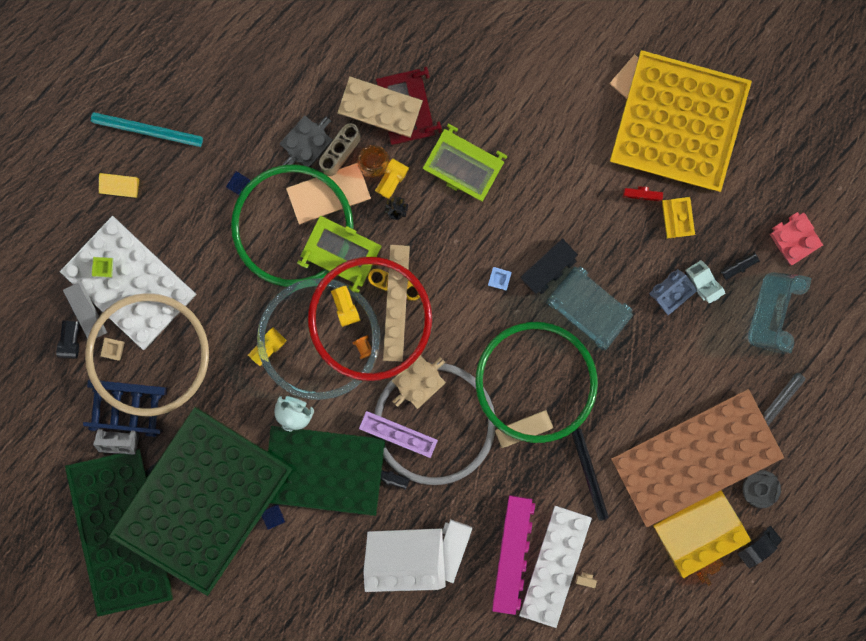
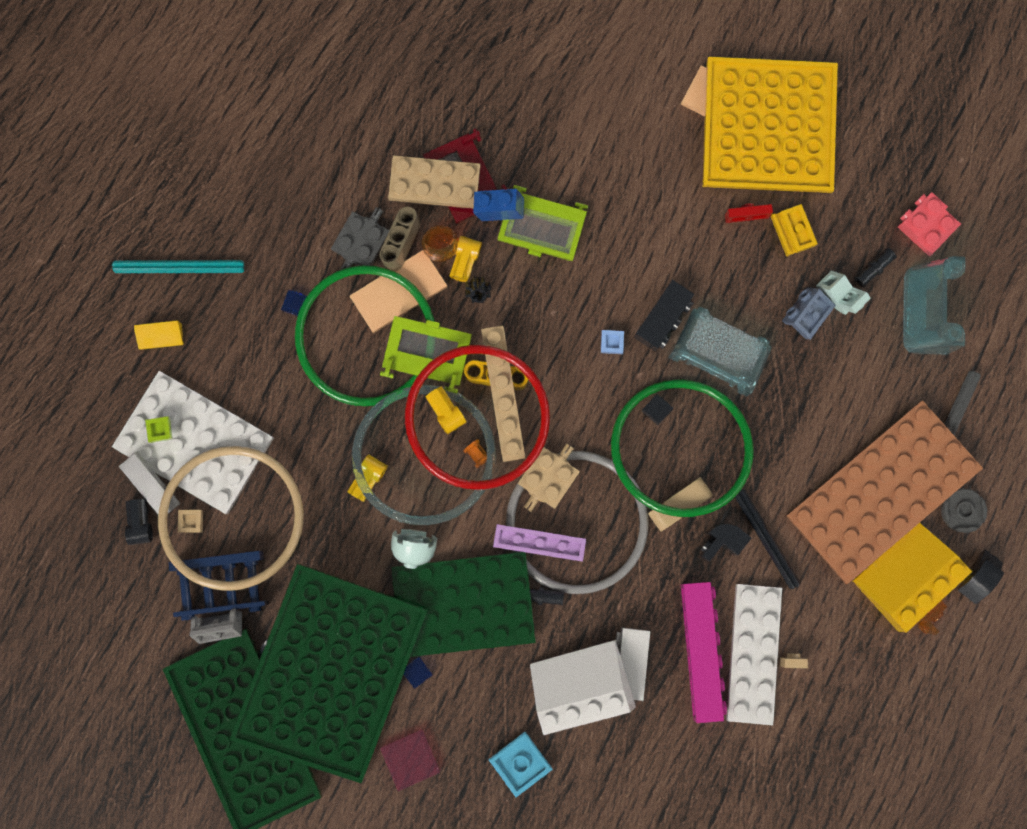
camera: 15 degrees left, 5 degrees down
(251, 586) = (410, 760): none -> clear pink tile
(341, 610) = (520, 764): none -> medium azure plate
(430, 140) = (498, 205): none -> blue brick
(523, 345) = (657, 409): none -> black tile
(556, 464) = (724, 535): none -> black brick

